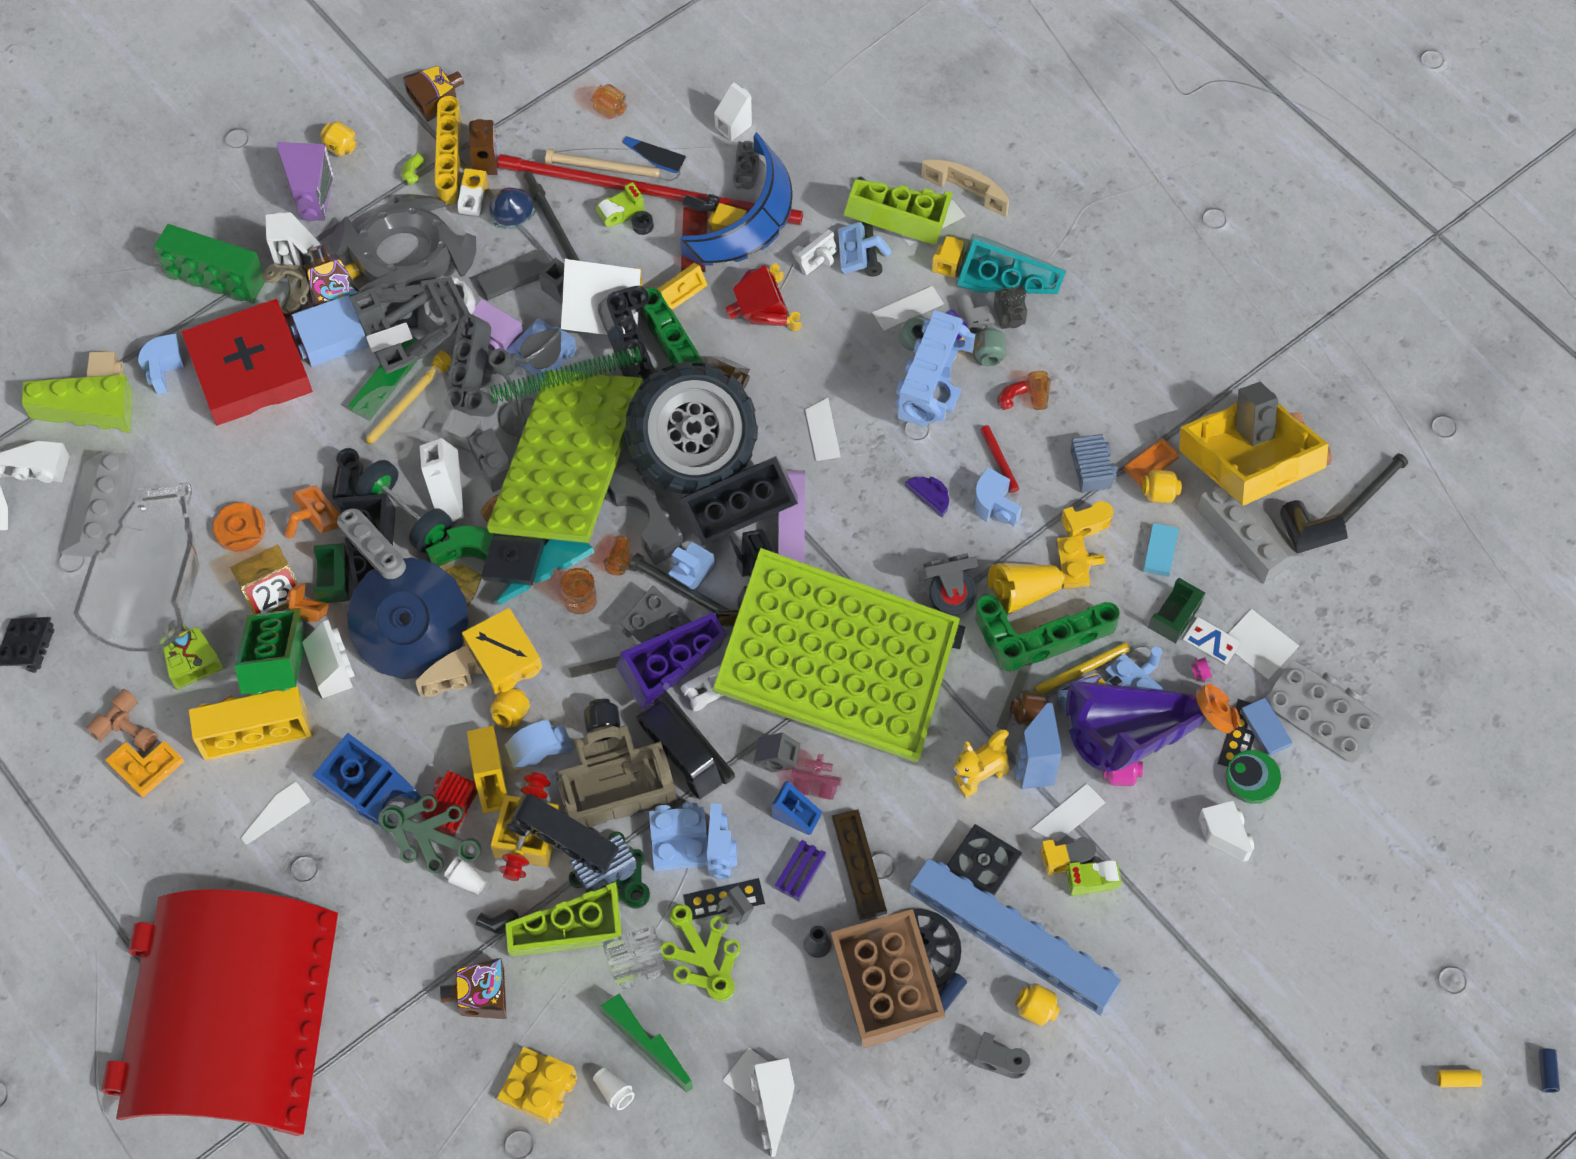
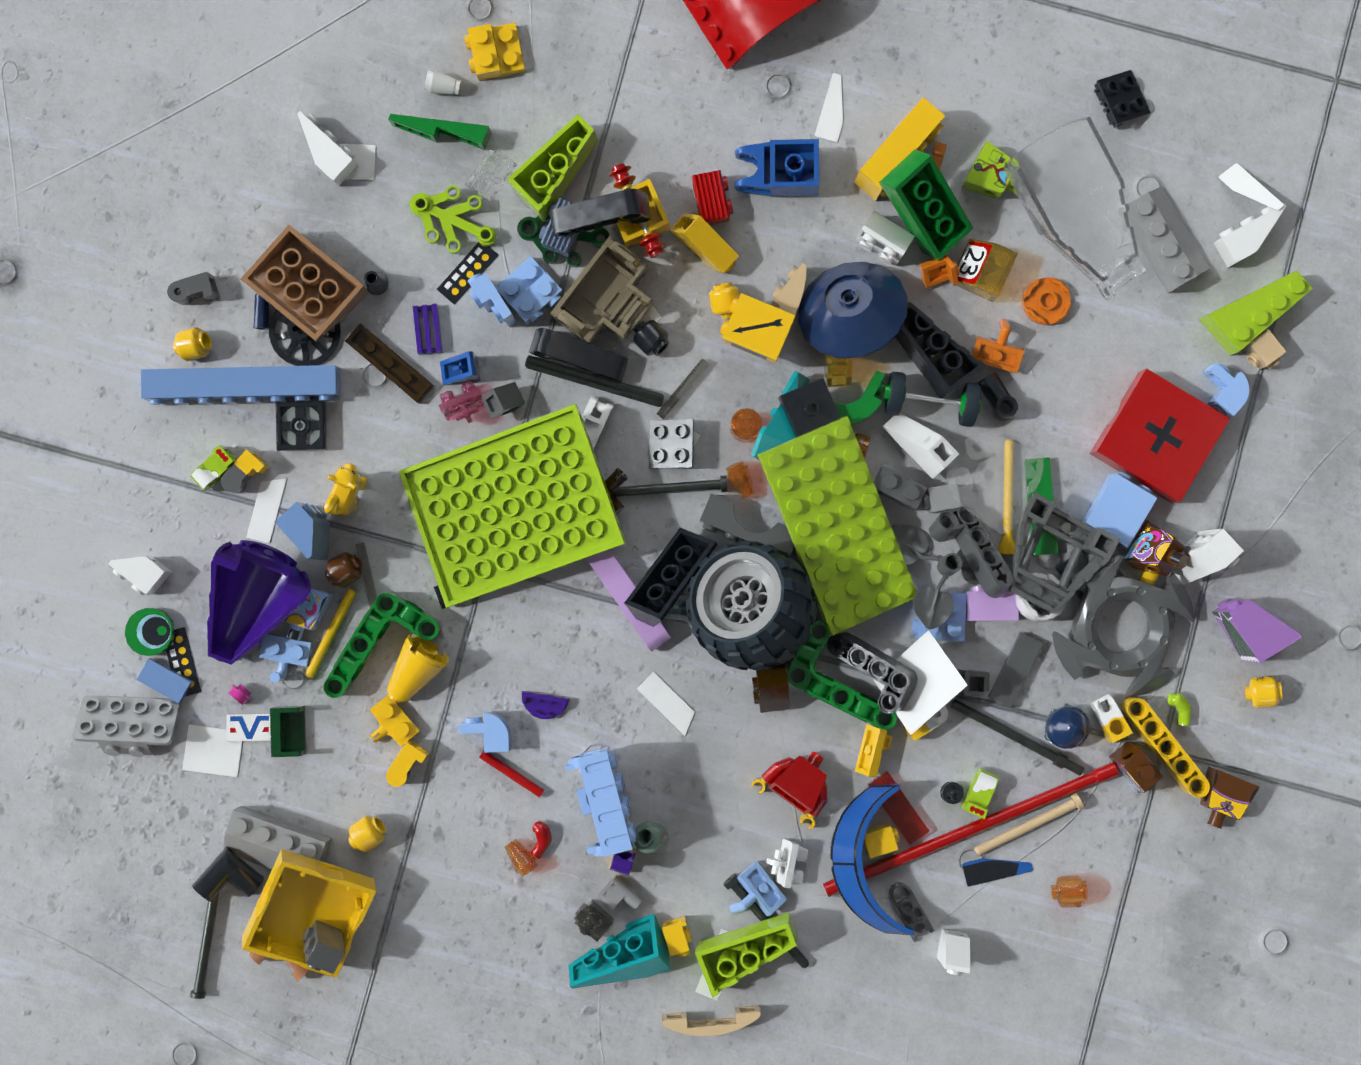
camera: 140 degrees right, 25 degrees up
(118, 719) = (1002, 92): nougat bar -> none
(144, 773) = (948, 66): light orange plate -> none
(210, 263) = (1262, 494): green brick -> none
(297, 285) = (1170, 521): dark tan helmet -> none
(332, 573) = (942, 310): dark green panel -> none
(371, 544) = (922, 338): light grey plate -> none
(389, 337) = (1063, 532): white sticker -> none
(425, 831) = (731, 151): dark green plant -> none
(464, 876) = (658, 155): white cone -> none
(478, 990) = (583, 82): torso -> none
(497, 924) = (608, 140): black arm -> none
(535, 742) = (680, 286): light blue brick -> none
(553, 385) = (935, 539): green piece -> none
(666, 659) = (633, 414): dark purple wedge -> none
(691, 565) = (676, 506): light blue brick -> none
(700, 205) = (907, 845): black arm -> none
(736, 905) = (450, 267): dark grey tile -> none
(751, 544) = (636, 546): black piece -> none
(908, 308) = (679, 866): white sticker -> none
(951, 587) = (472, 632): plate -> none
(990, 346) = (586, 871): sand green head -> none
(1092, 463) = (434, 818): sand blue brick -> none
(1157, 456) = (392, 855): orange tile -> none
(1160, 549) = (335, 779): medium azure tile -> none
(1216, 709) = (204, 664): orange tile -> none

